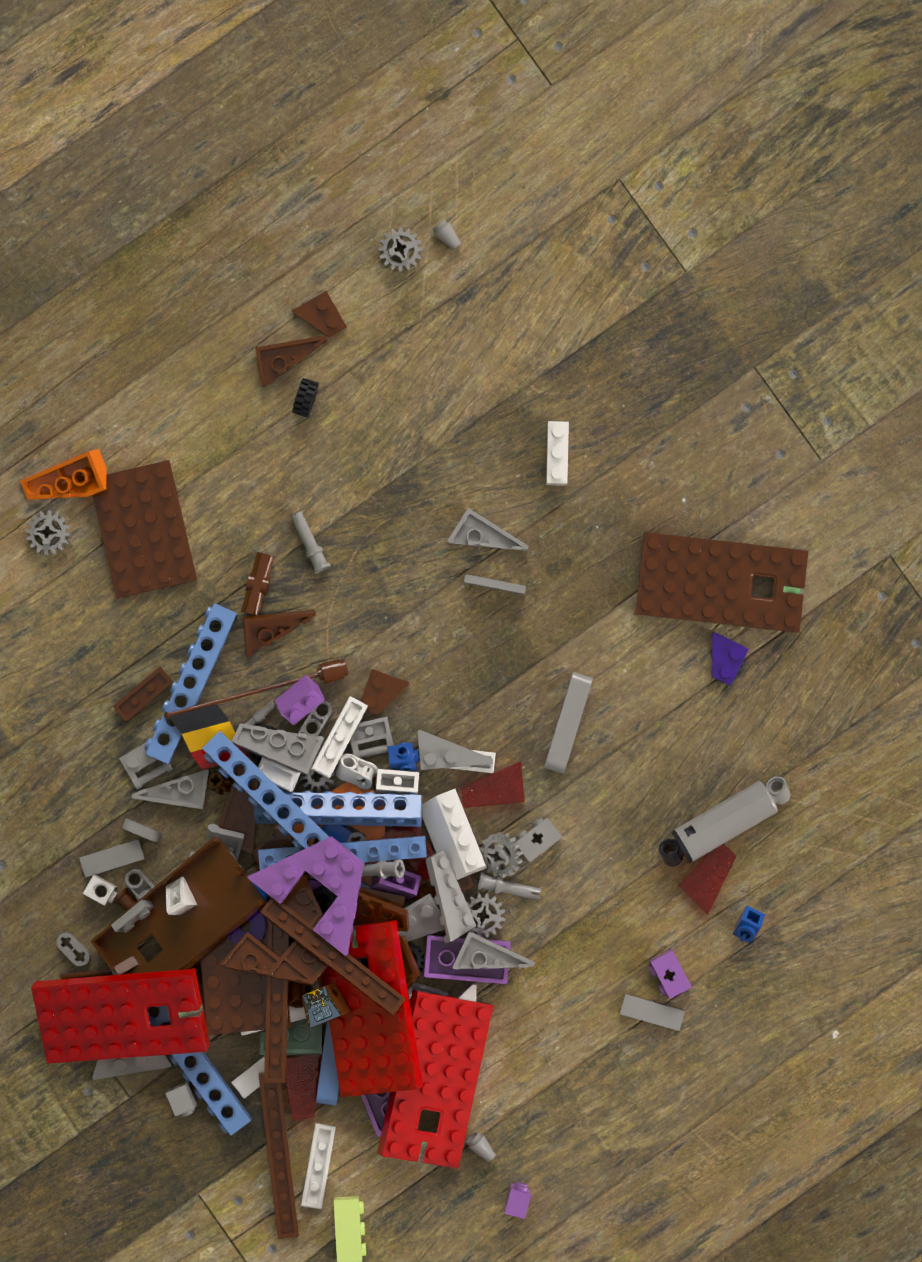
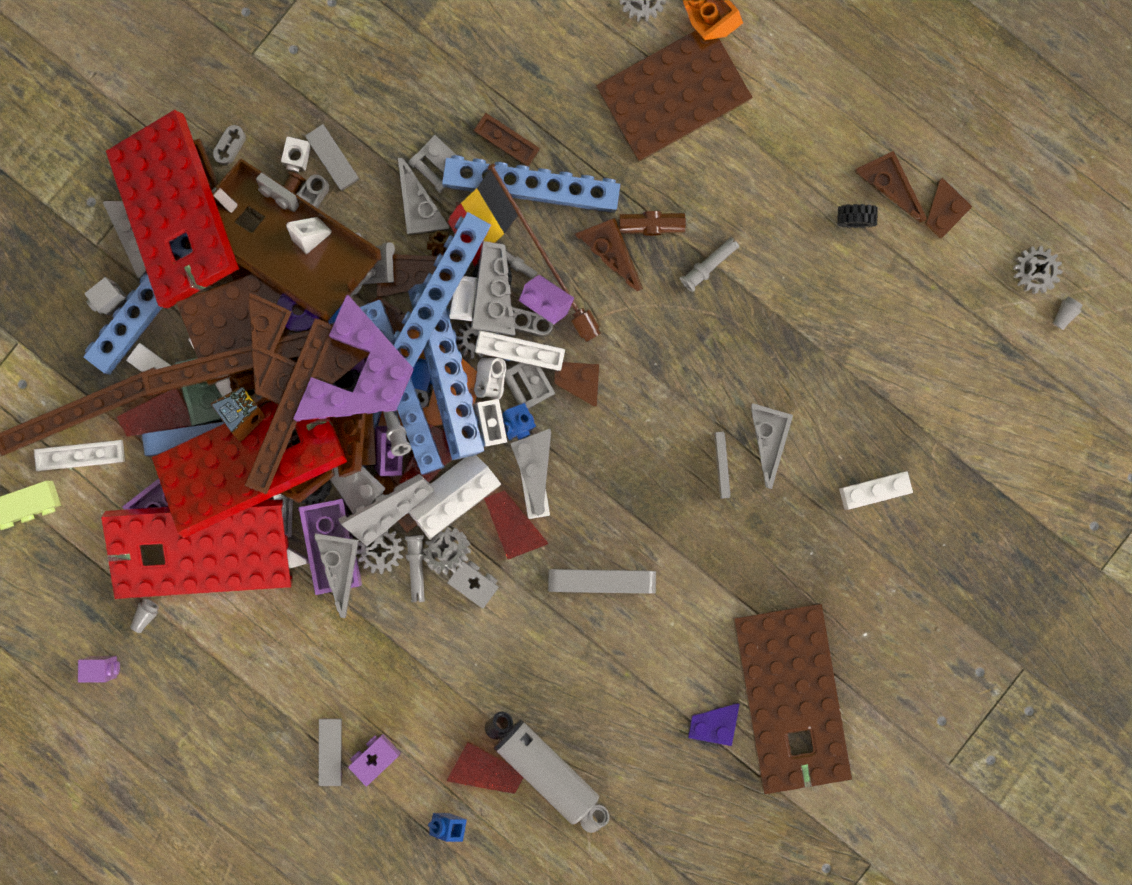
camera: 80 degrees right, 0 degrees up
(141, 830) = (368, 178): light grey beam -> none

